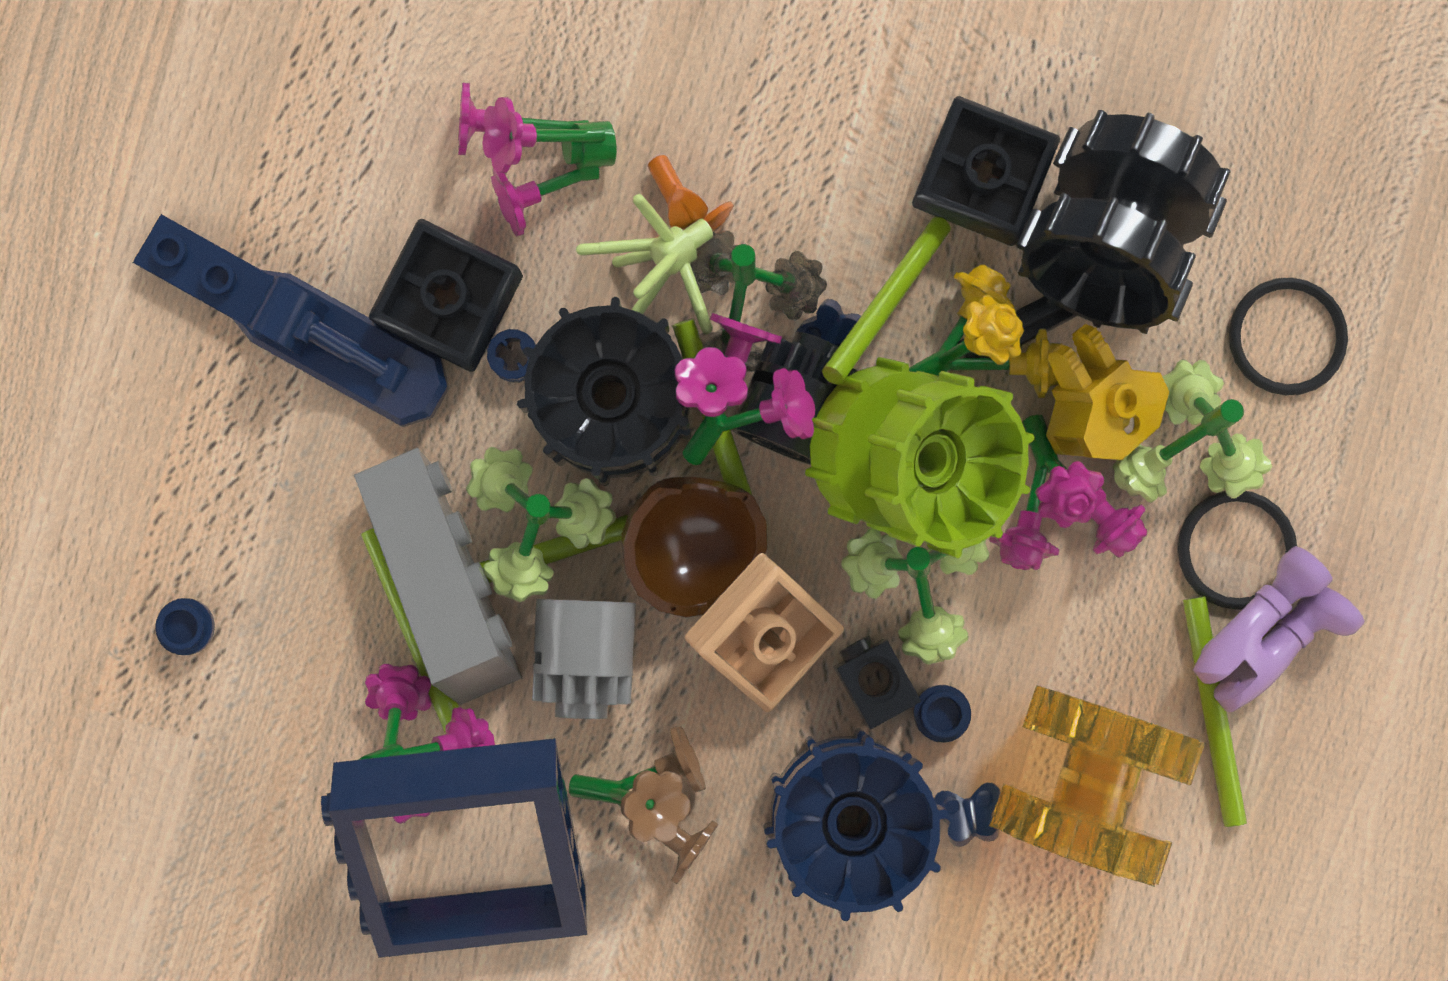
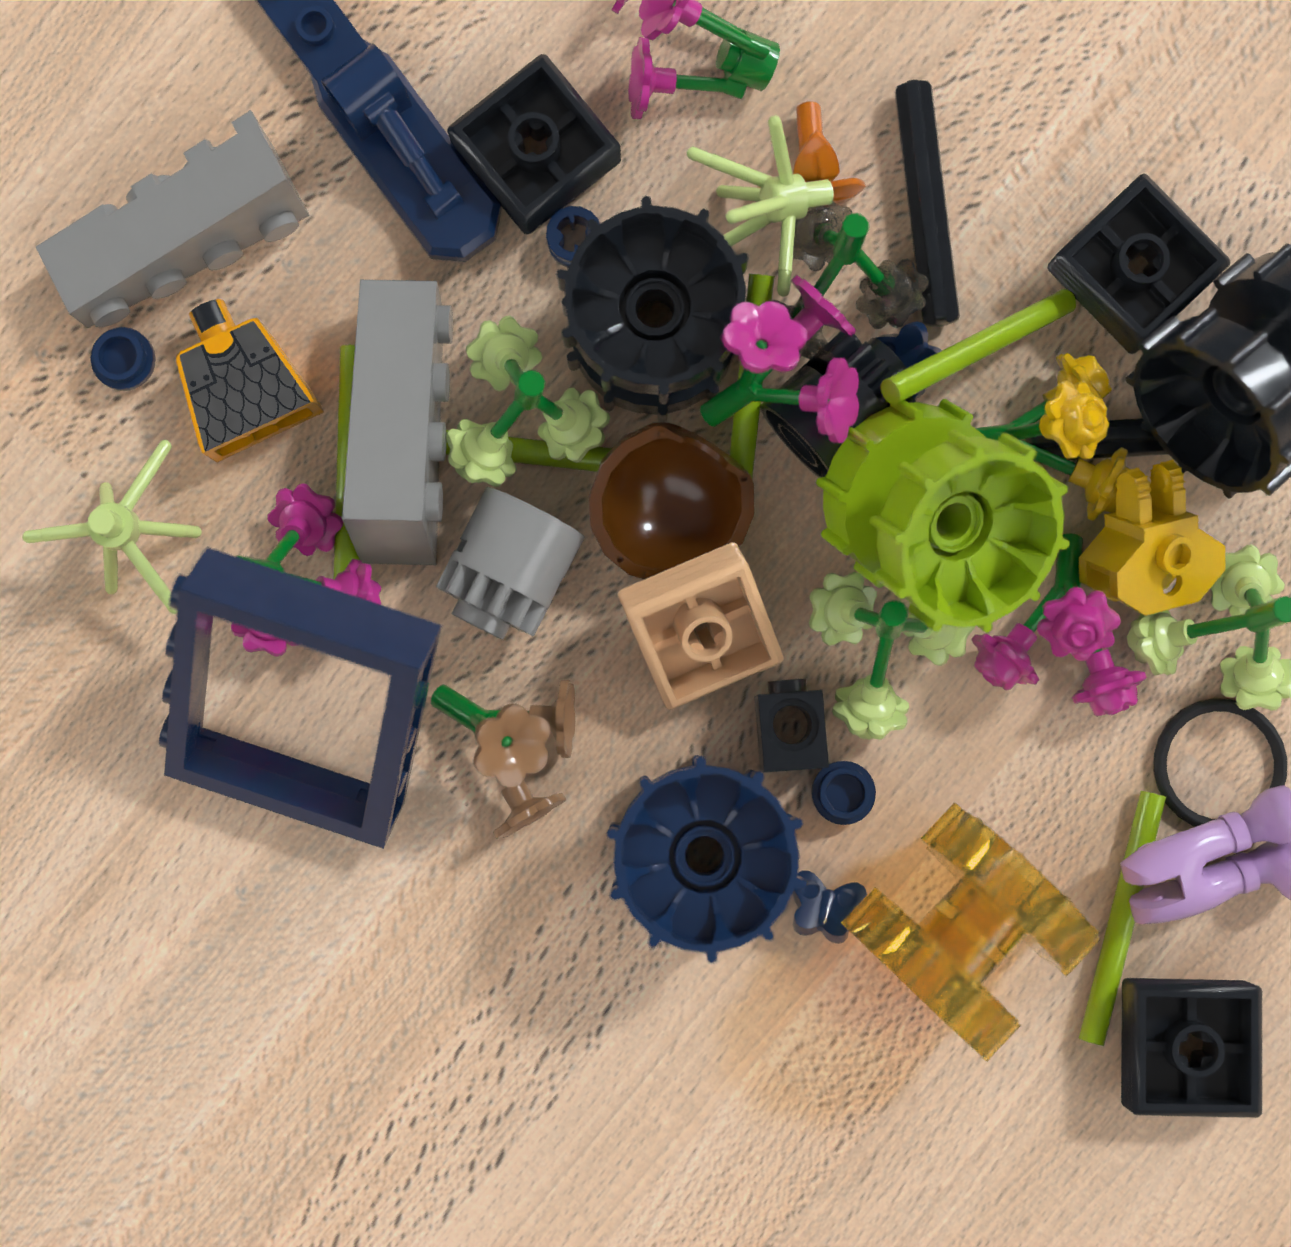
camera: 25 degrees right, 0 degrees up
(179, 500) = (174, 227): none -> light grey wedge
(249, 772) = (119, 528): none -> yellowish green plant
(292, 603) = (239, 383): none -> torso
(789, 195) = (927, 201): none -> black axle
(1351, 807) = (1218, 1079): none -> black brick

